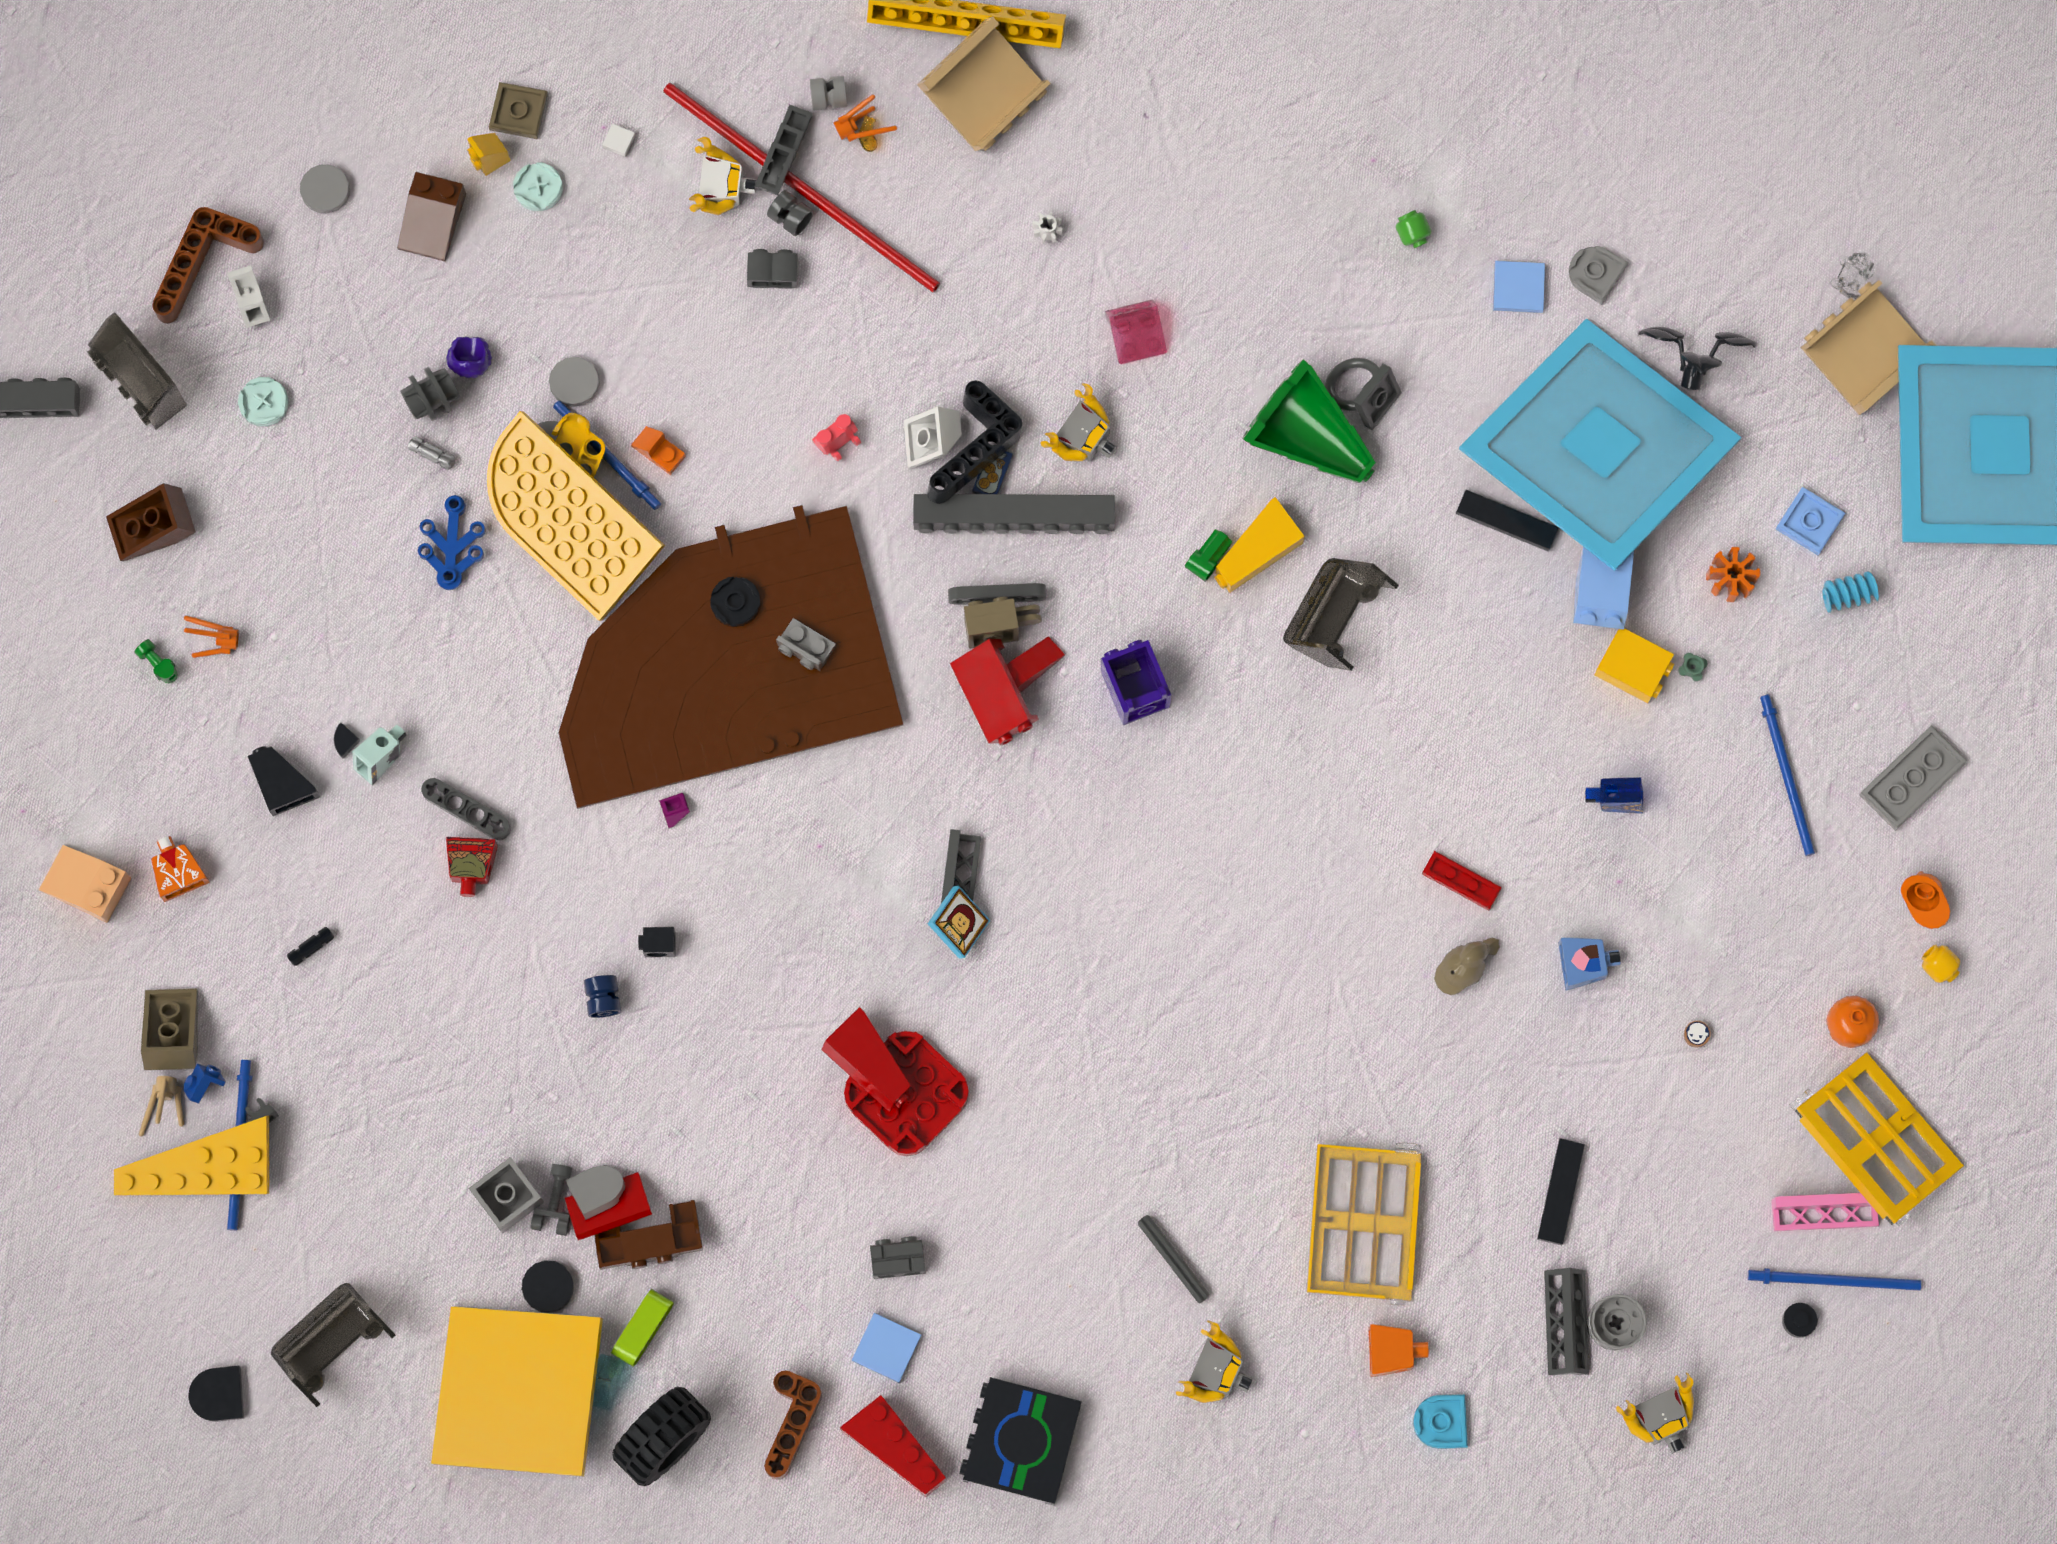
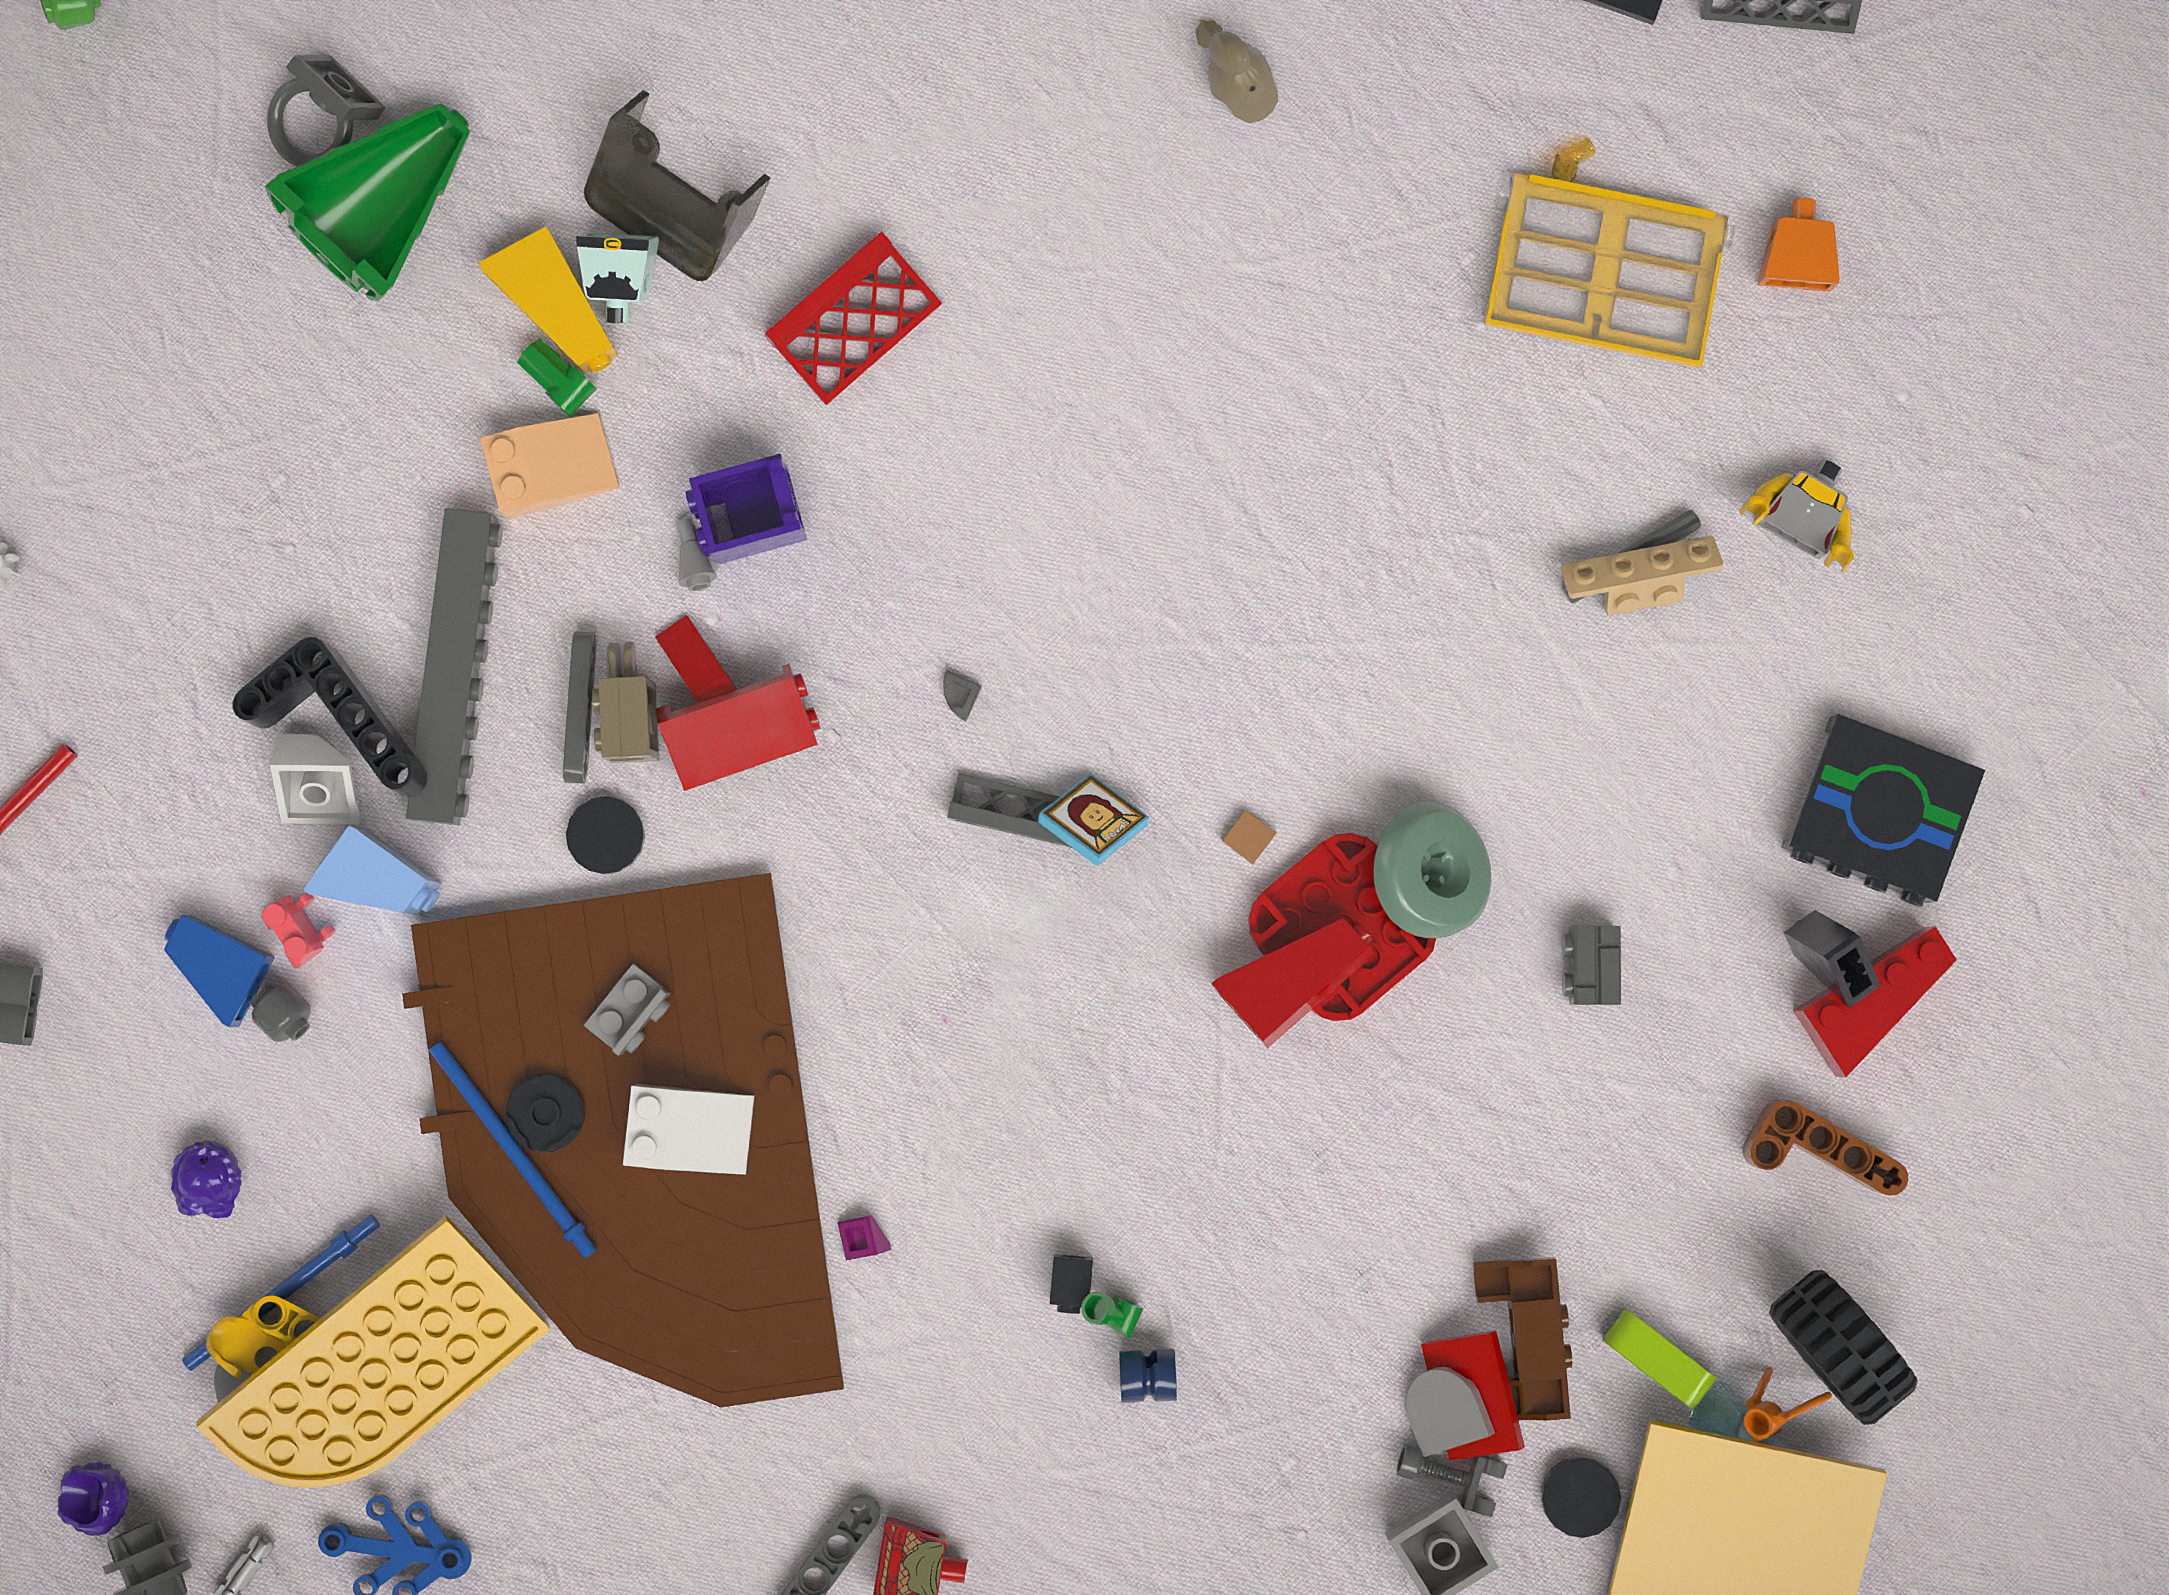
camera: 85 degrees left, 10 degrees up
(574, 381) = (153, 1333): light grey tile -> none
(610, 1393) = (1767, 1417): none -> orange plant
(640, 975) = (1113, 1312): none -> green leg
(657, 449) = (282, 1210): orange slope -> none
(663, 626) = (533, 1177): none -> blue bar
(669, 401) = (206, 1186): none -> dark purple hair
(733, 689) = (688, 1129): none -> white slope
(783, 433) = (281, 1012): none -> dark grey head
(808, 392) = (217, 966): none -> blue slope
(875, 478) = (373, 874): none -> light blue slope
(886, 1347) = (1722, 995): light blue tile -> none
(916, 620) = (605, 835): none -> black tile
(917, 1409) = (1833, 956): none -> black slope
(948, 1143) = (1432, 870): none -> sand green hat
(959, 1027) = (1249, 837): none -> medium nougat tile
(992, 477) = (395, 698): tile -> none
(1032, 832) = (960, 694): none -> flat silver tile
(1083, 431) = (334, 545): torso -> none
(1092, 654) = (694, 566): none -> light grey cone
(1136, 331) = (181, 446): clear pink bracket -> none
(1151, 557) = (549, 464): none -> light nougat slope
(1159, 1263) = (1643, 575): none -> tan bracket
(1282, 583) = (616, 270): none -> light aqua torso
(1282, 718) = (831, 292): none -> red fence
(1434, 1189) = (1568, 160): none -> clear yellow arm
(1442, 1422) = (1907, 194): medium azure tile -> none
(1461, 880) = (1105, 63): red tile -> none

